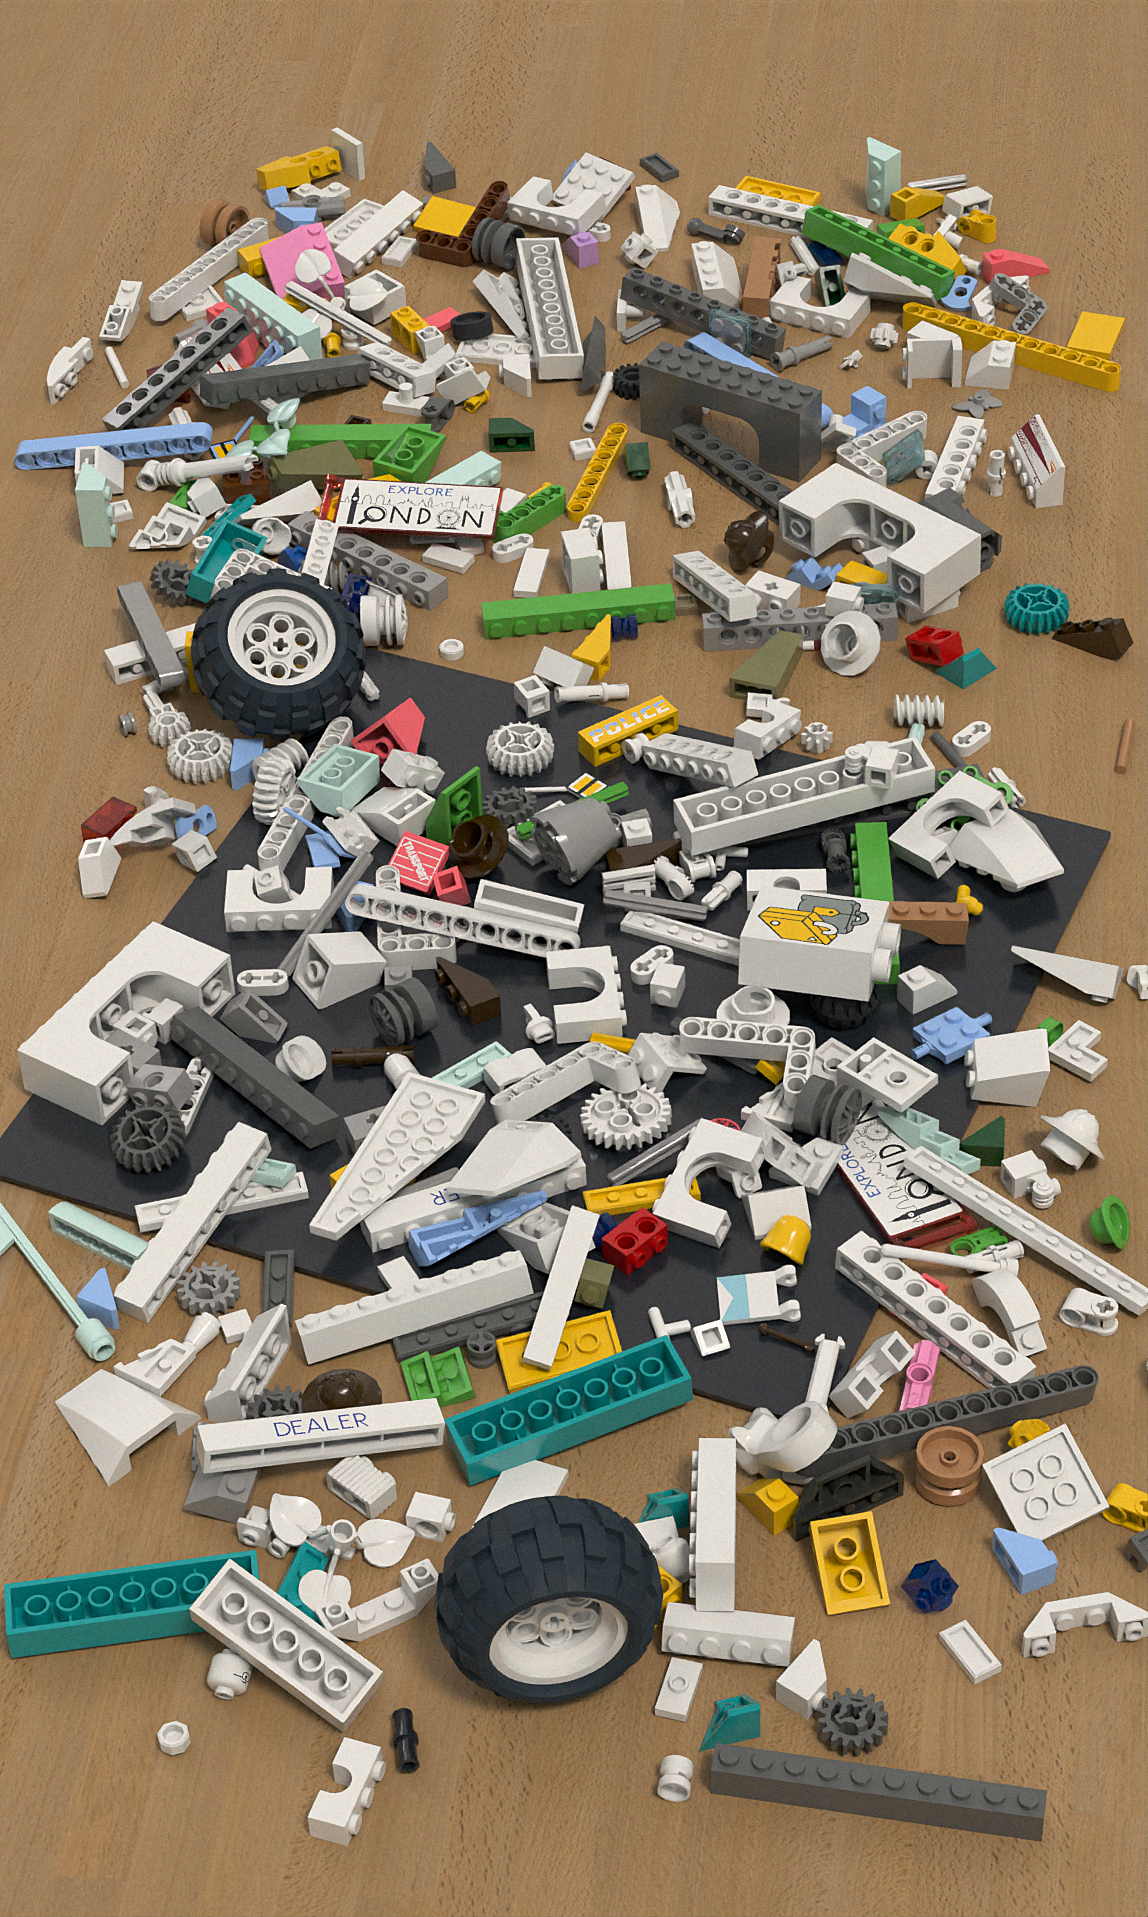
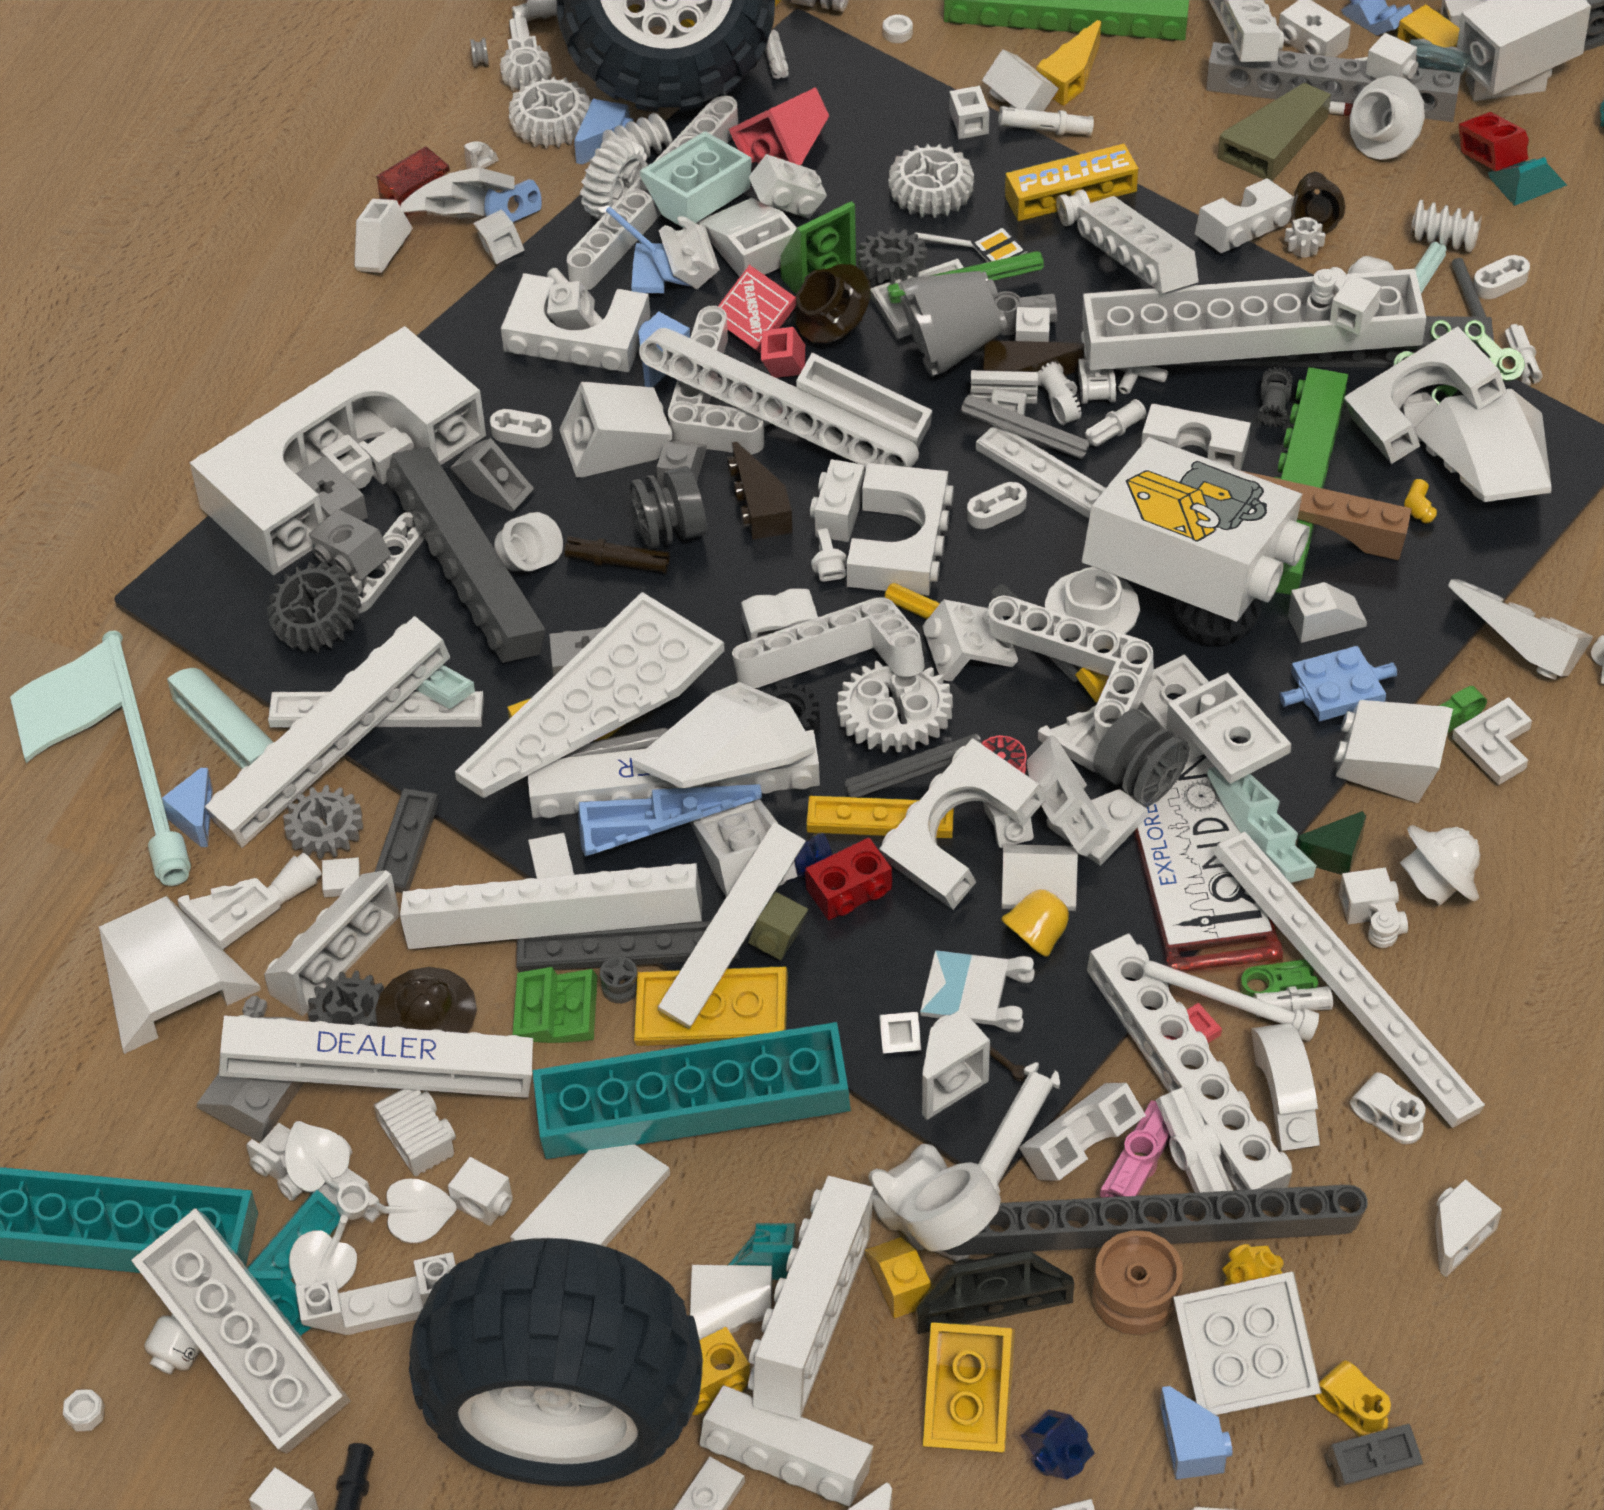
camera: 15 degrees right, 10 degrees up
(328, 909) = (624, 349): light grey axle -> none
(397, 1067) = (643, 577): white brick -> none
(471, 1070) = (725, 600): light aqua tile -> none
(531, 982) = (838, 499): none -> white brick
(624, 627) = (1116, 39): clear blue wheel -> none
(666, 1329) = (845, 1007): white piece -> none
(667, 985) = (1005, 538): white brick -> none
(673, 1557) = (746, 1320): white head -> none
(686, 604) = (1202, 23): dark tan tile -> none
(757, 702) = (1248, 173): white plate -> none
(763, 1344) = (953, 1062): none -> white slope
(825, 712) = (1325, 208): none -> dark brown hair
(957, 1363) = (1193, 1142): none -> white piece
(1111, 1222) = (1457, 991): bright green hat -> none

